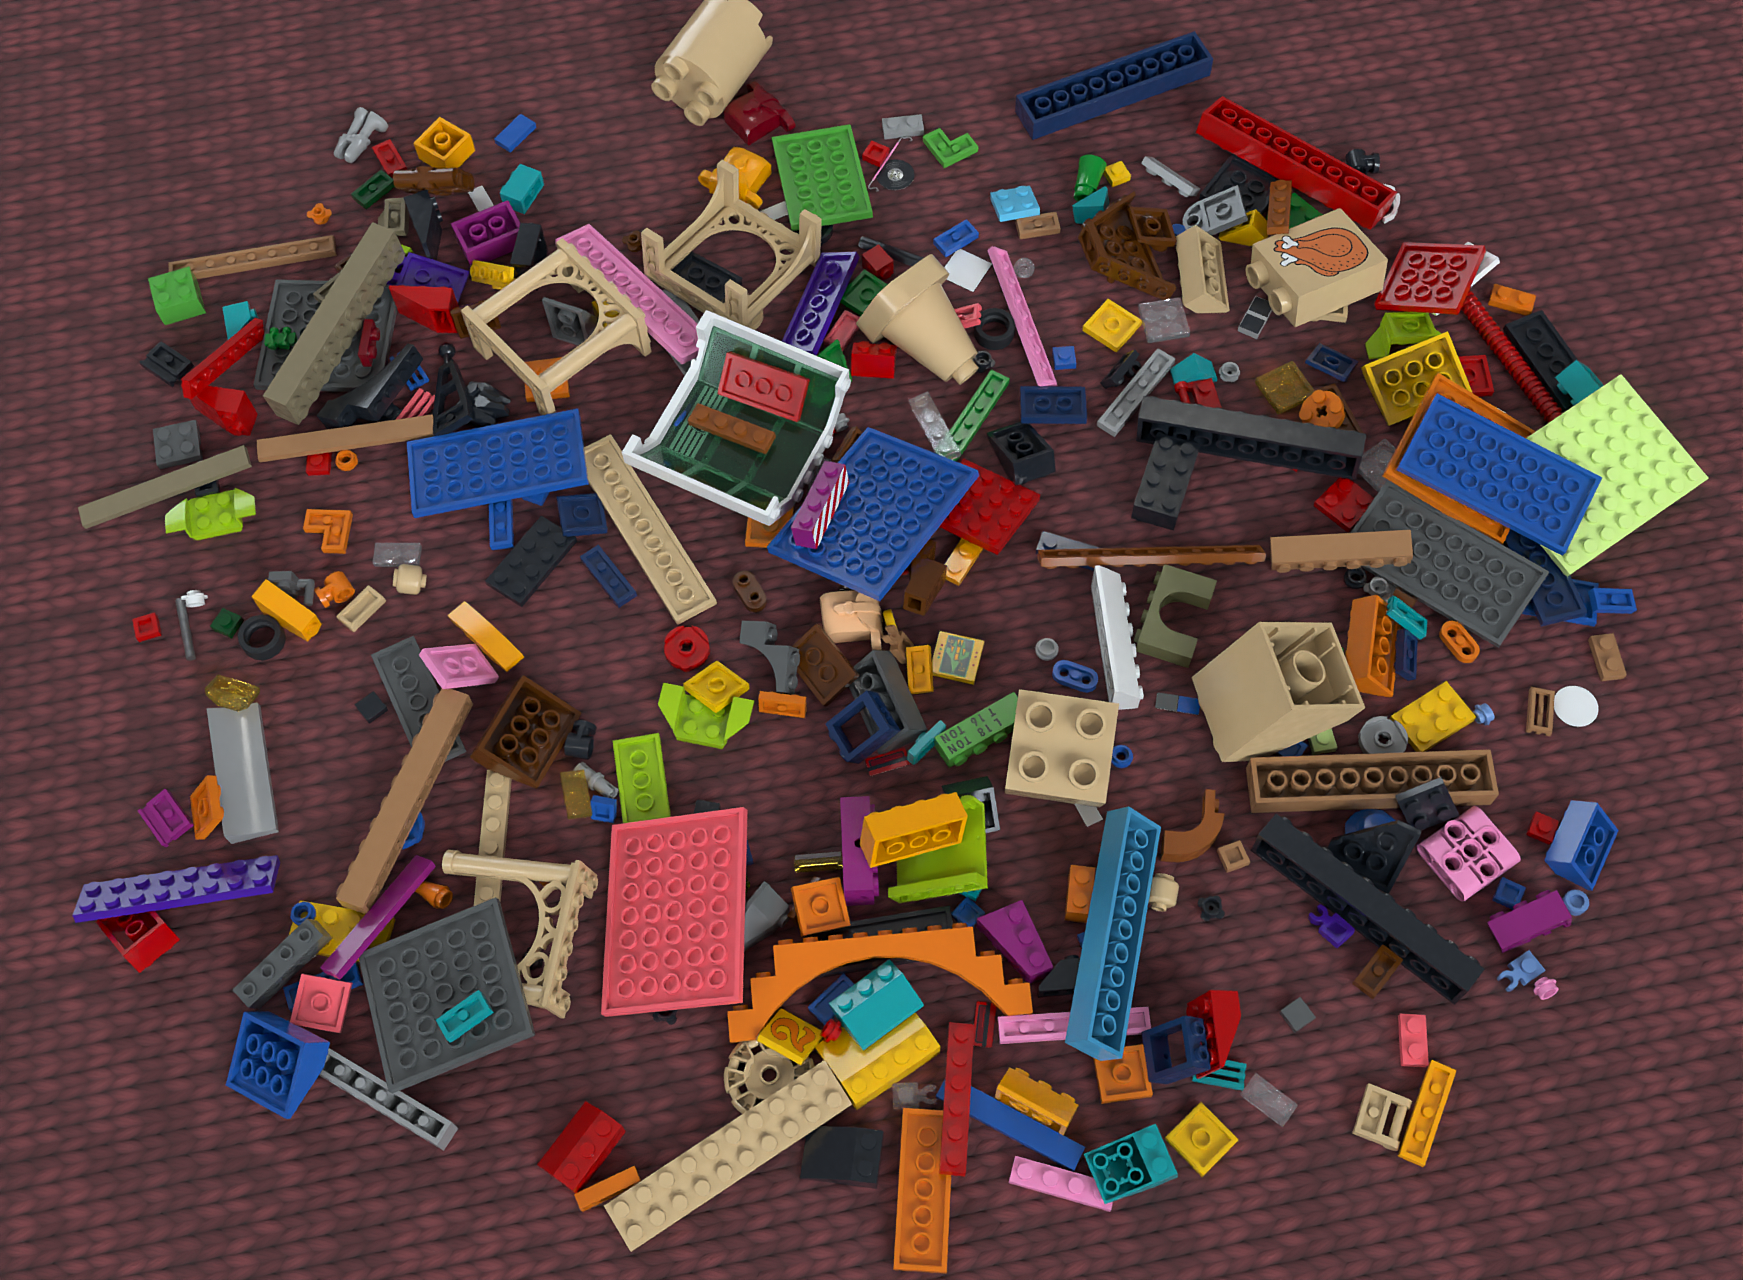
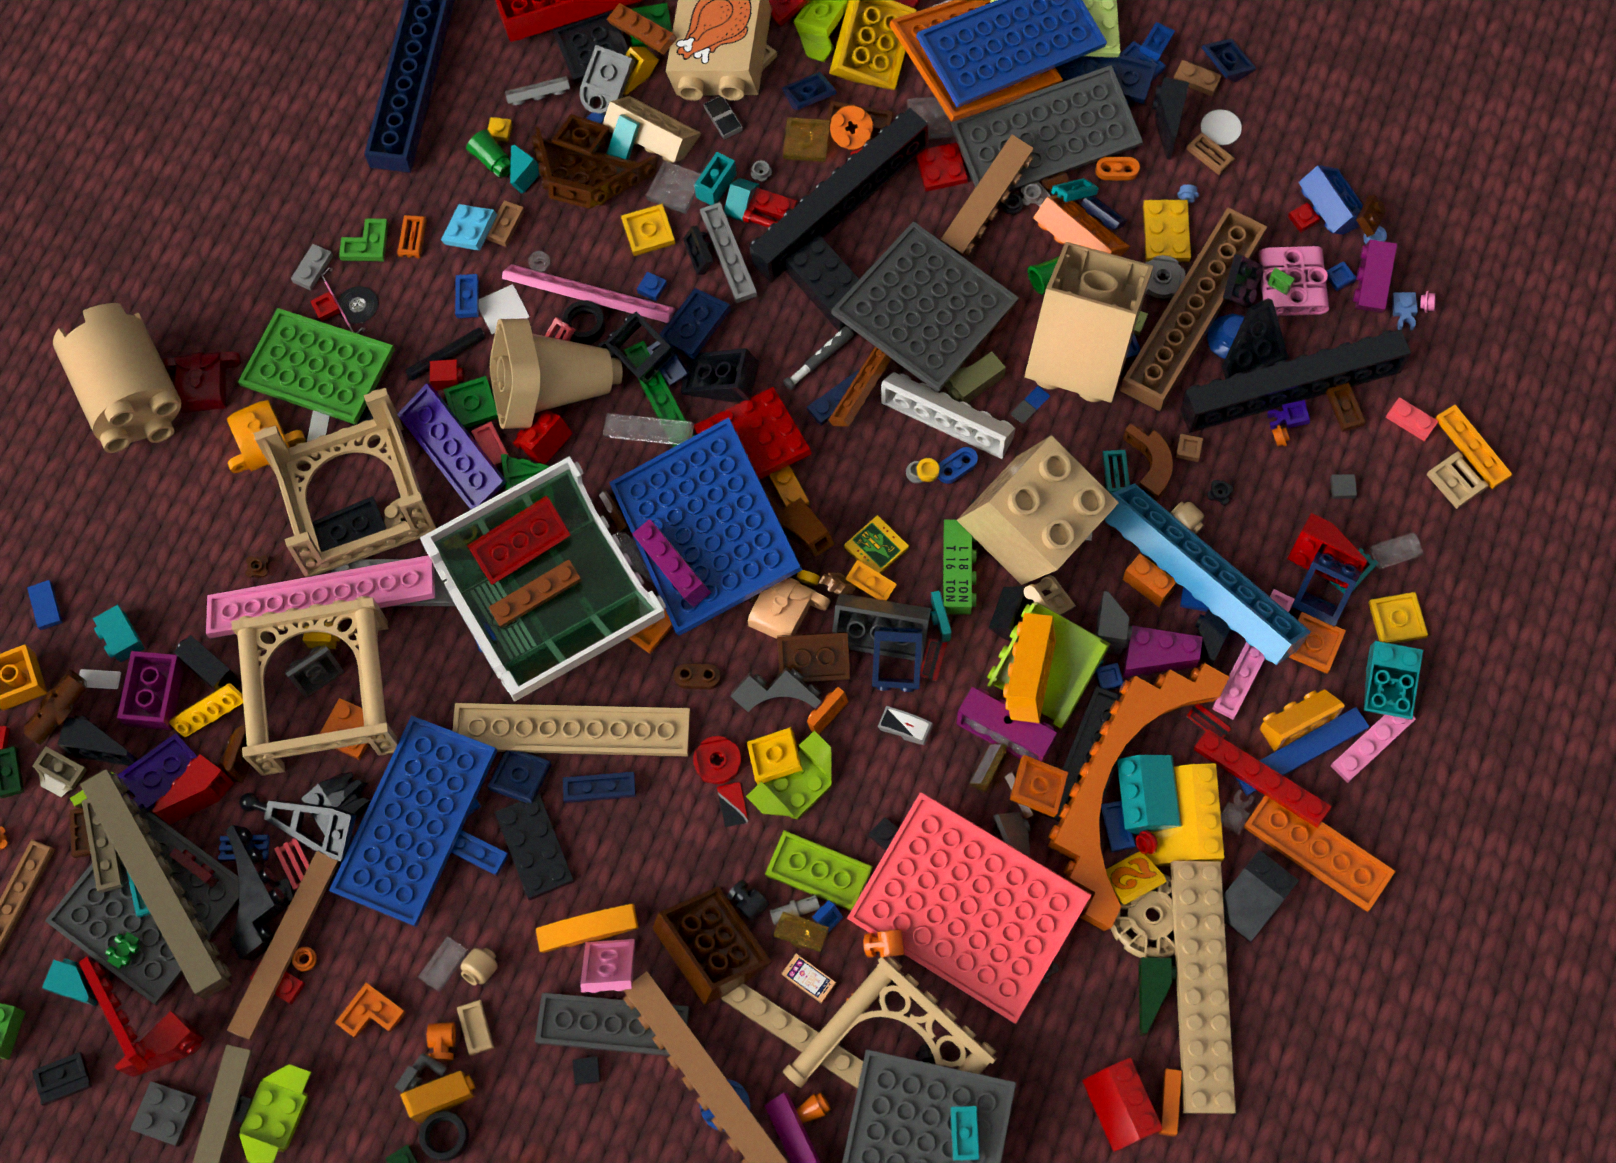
camera: 55 degrees left, 5 degrees up
(544, 827) = (808, 978): none -> tile
(603, 863) = (887, 943): none -> orange piece
(652, 687) = (732, 804): none -> sticker
(702, 1113) = (1154, 982): none -> dark green slope
(811, 773) = (905, 725): none -> slope
(981, 176) = (410, 252): none -> orange tile
(994, 392) = (654, 362): none -> black window
(999, 825) = (1056, 601): none -> tan plate
(1005, 406) = (674, 369): none -> dark blue plate
(1008, 882) = (1113, 624): none -> dark grey slope
(1051, 653) = (928, 469): none -> yellow tile
(1104, 516) = (820, 356): none -> dark grey piece
(1175, 256) = (623, 137): none -> teal tile
(1181, 798) = (1114, 453): none -> teal tile
(1192, 339) = (715, 179): none -> teal brick
(1195, 559) = (925, 306): none -> dark grey plate
(1304, 929) = (1280, 436): none -> orange plate
(1452, 837) = (1280, 281): none -> bright green tile
(1553, 649) = (1169, 106): none -> black slope
(1589, 883) = (1371, 215): none -> reddish brown plate
(1647, 672) = (1229, 59): none -> dark blue slope

